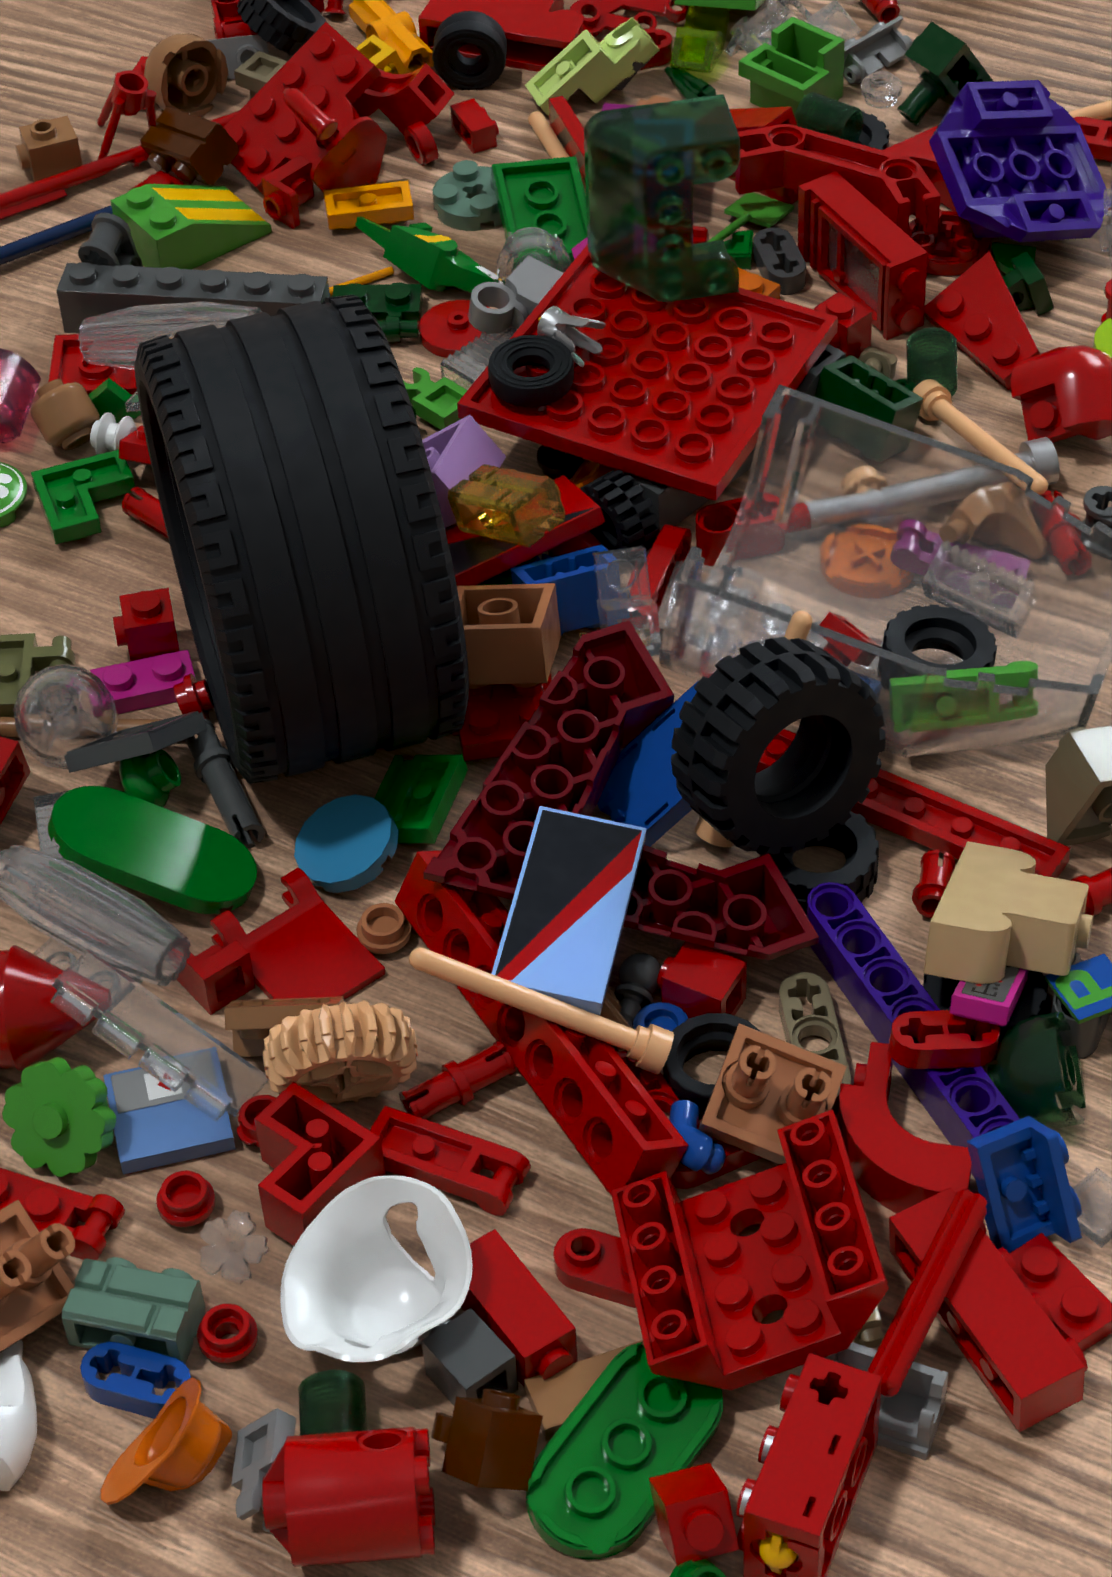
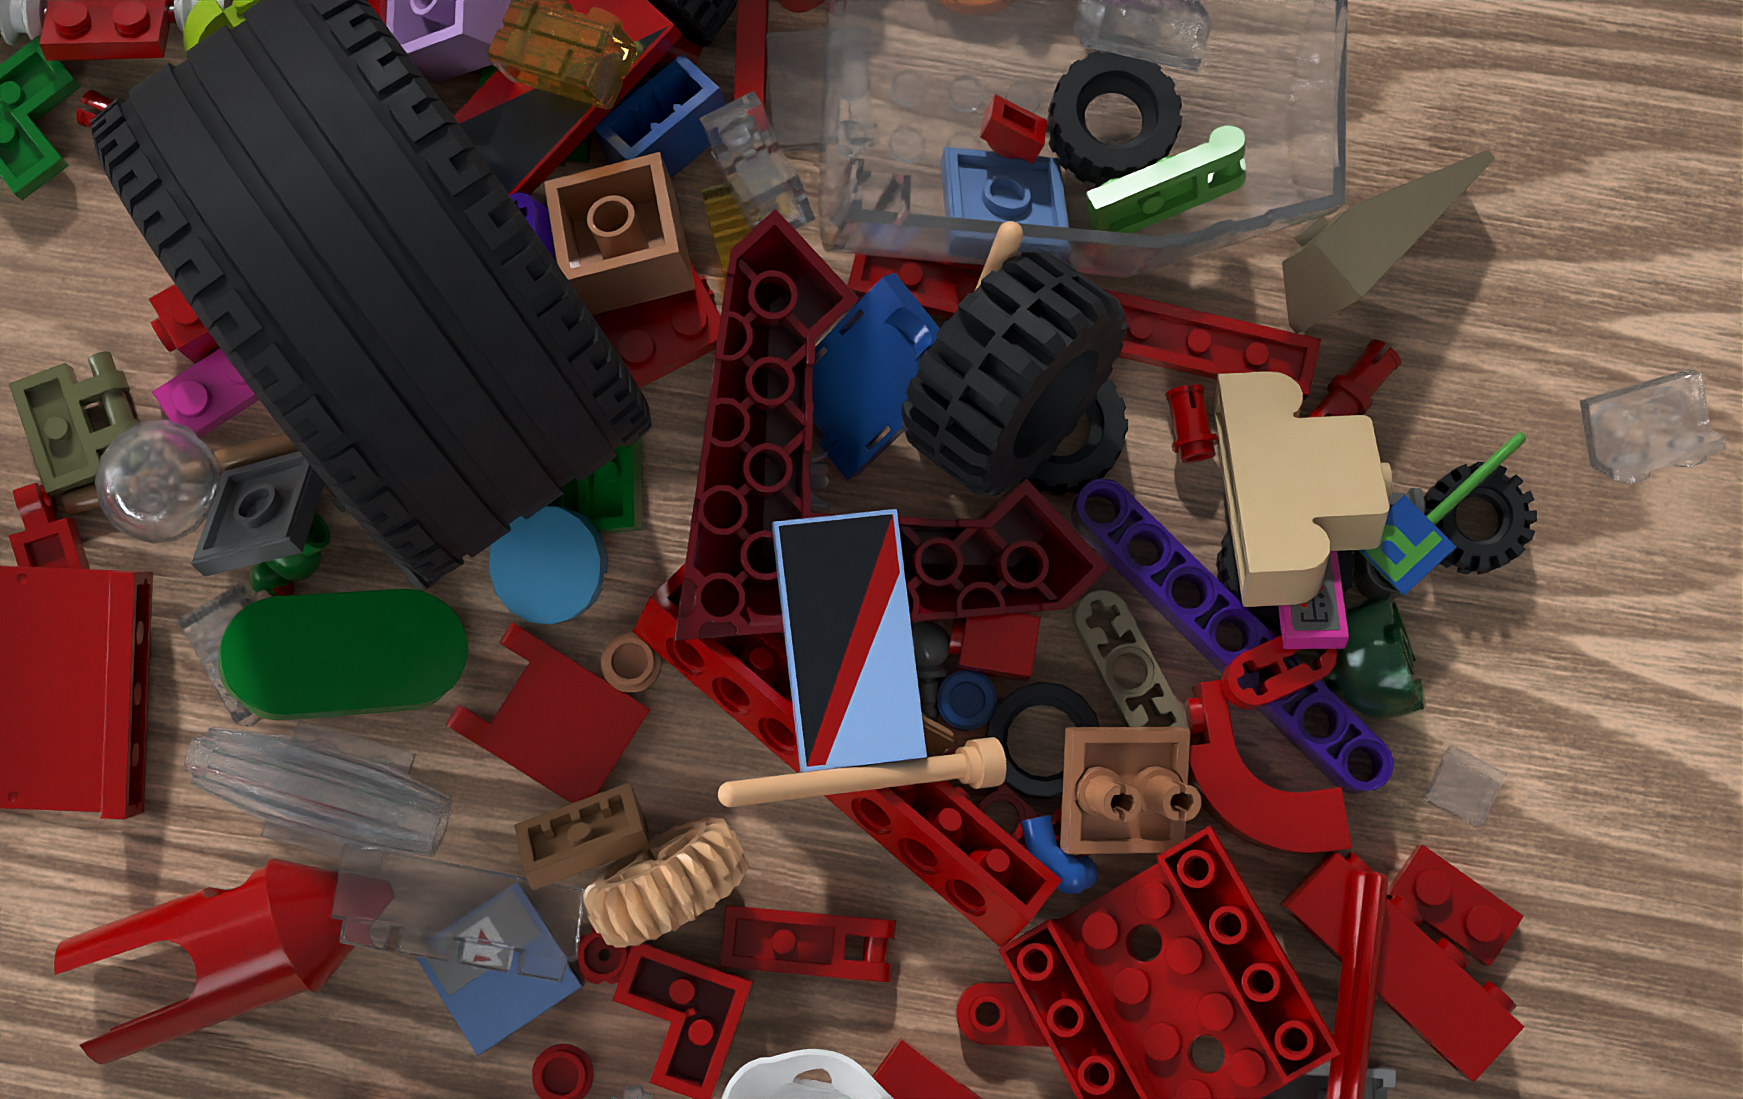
camera: 25 degrees left, 35 degrees up
(59, 1116) = (398, 1035): bright green plant -> none
(218, 975) = (470, 777): red panel -> none
(458, 1082) = (786, 844): red pin -> none
(1025, 1183) = (1401, 812): blue bracket -> none

